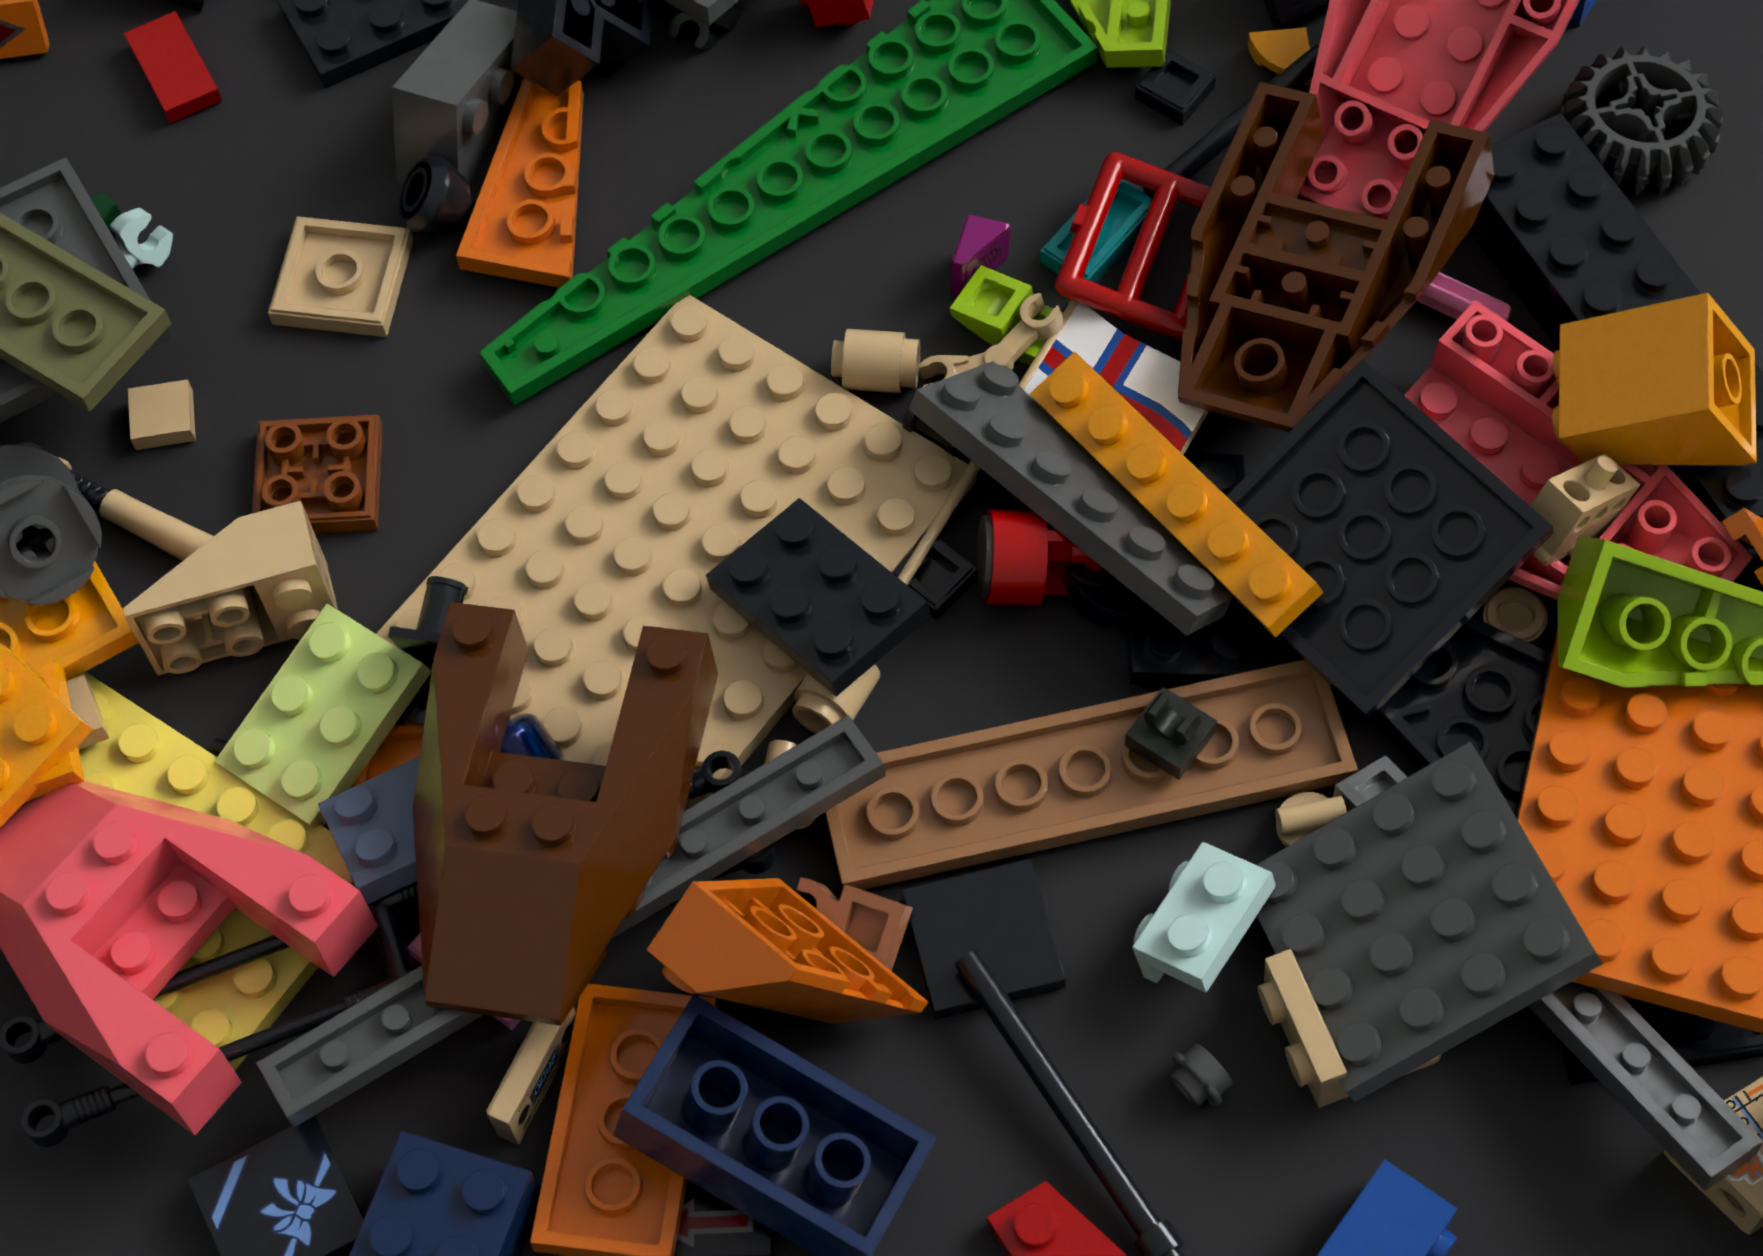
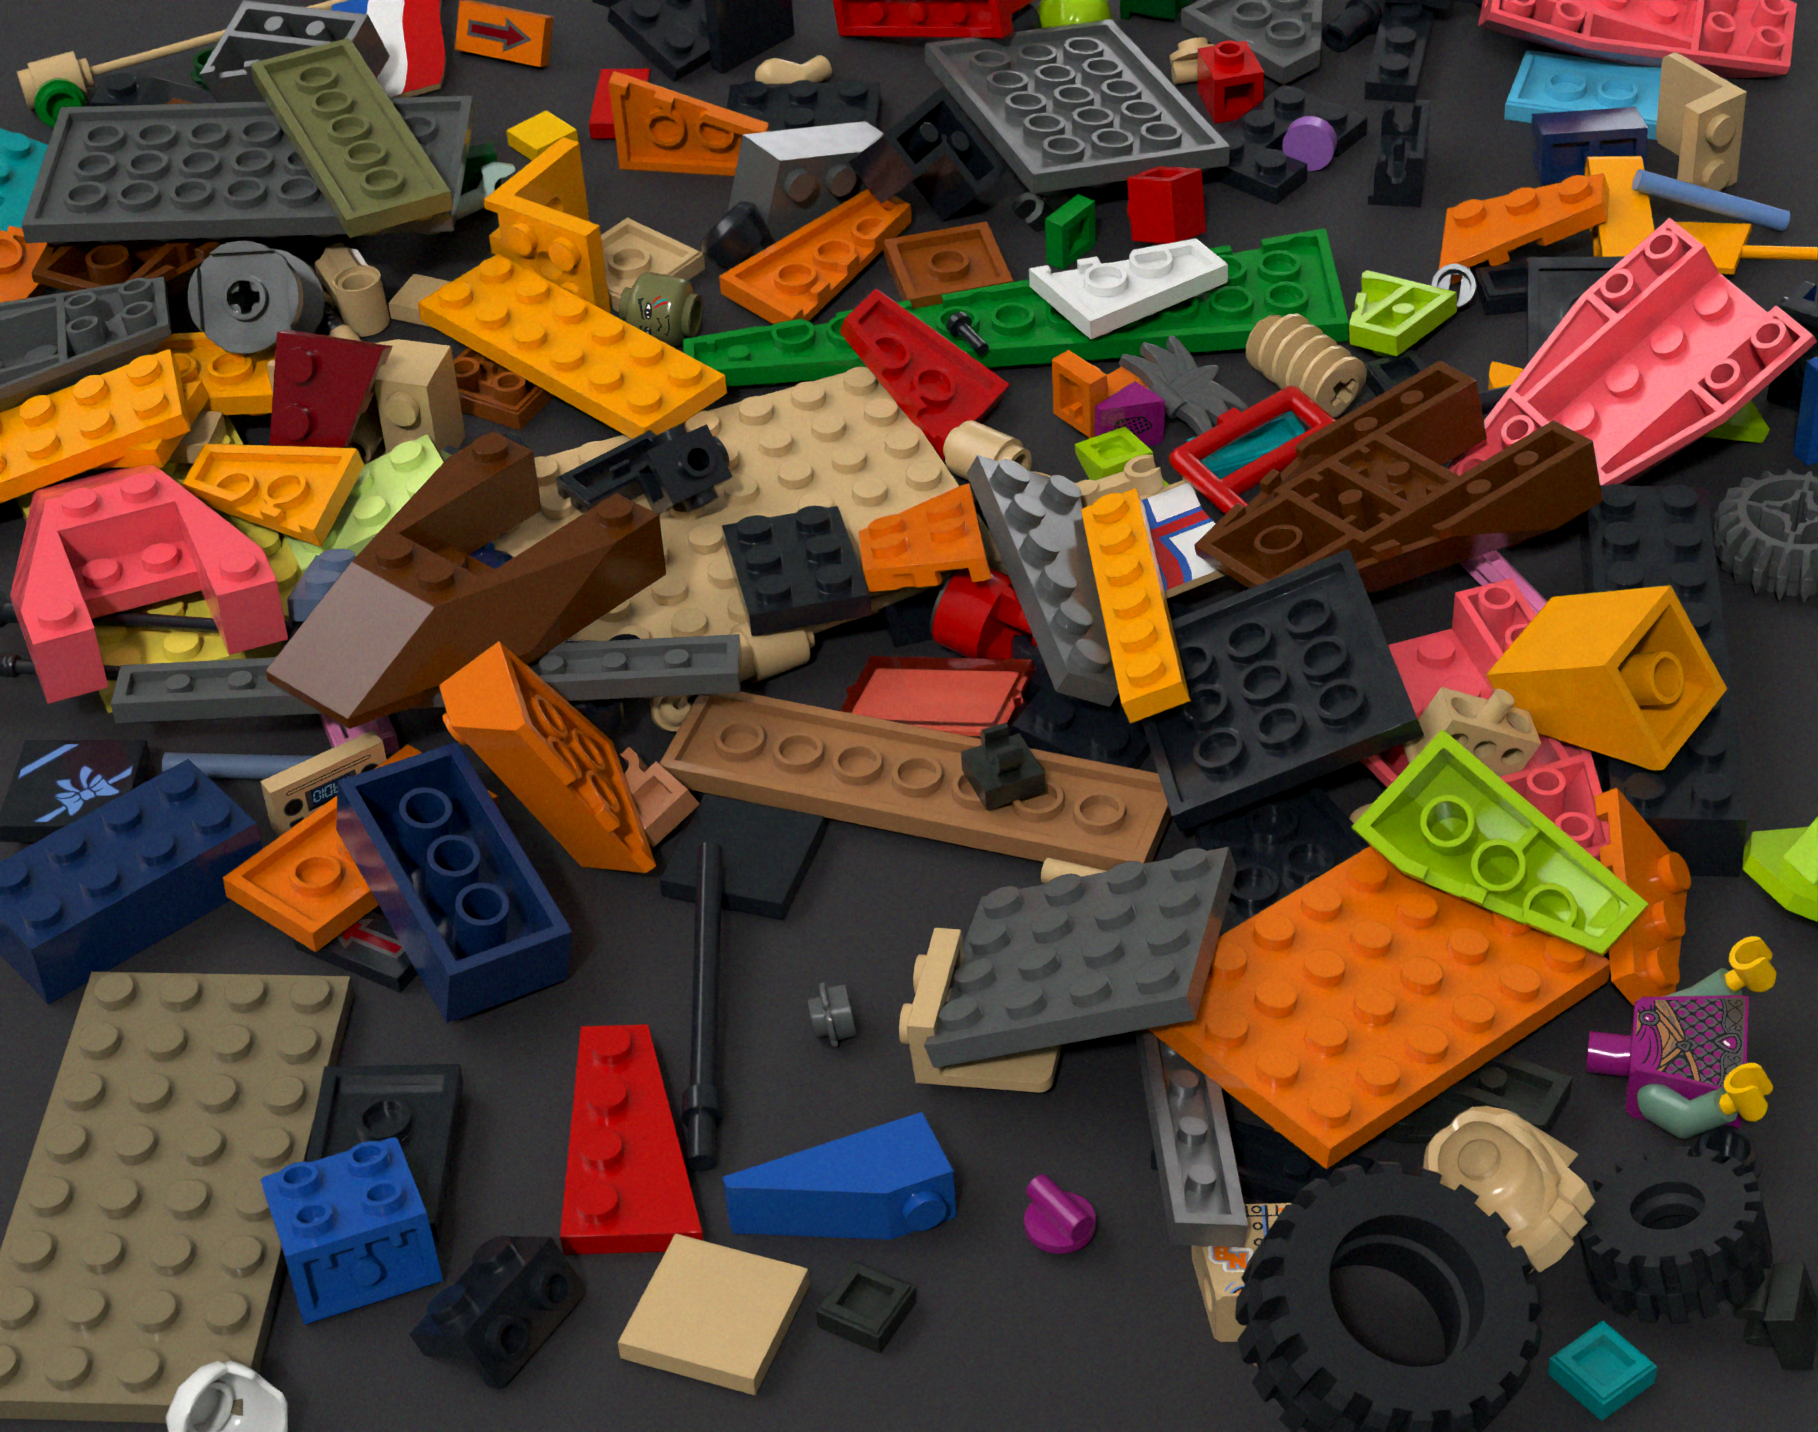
camera: 30 degrees right, 20 degrees down
(84, 439) = (354, 289): none -> tan piece
(123, 147) = (538, 134): none -> yellow tile
(208, 637) = (321, 388): none -> dark red wing
(222, 746) = (277, 486): none -> light orange wing
(262, 313) = (548, 223): none -> light orange bracket
(290, 89) = (675, 131): none -> orange wing
(380, 419) = (572, 348): none -> light orange plate
(427, 323) = (662, 307): none -> olive head
(431, 1078) = (235, 765): none -> sand blue bar
(534, 598) = (605, 475): none -> black tile
(628, 532) = (682, 469): none -> black brick
(666, 139) = (945, 262): none -> dark orange plate
(748, 217) = (960, 326): none -> black piece
(753, 288) = (921, 368): none -> red wing
(758, 46) = (1070, 232): none -> green tile
(879, 101) = (1111, 295): none -> white wing
(926, 240) = (1081, 387): none -> orange bracket
(932, 511) = (924, 542): none -> orange wing
(999, 190) = (1186, 389): none -> dark grey piece
(1034, 667) = (940, 692): none -> clear red piece
(1095, 116) = (1300, 356): none -> tan piece
(1201, 917) = (917, 897): light aqua bracket -> none
(1550, 1191) = (1056, 1218): none -> magenta plate

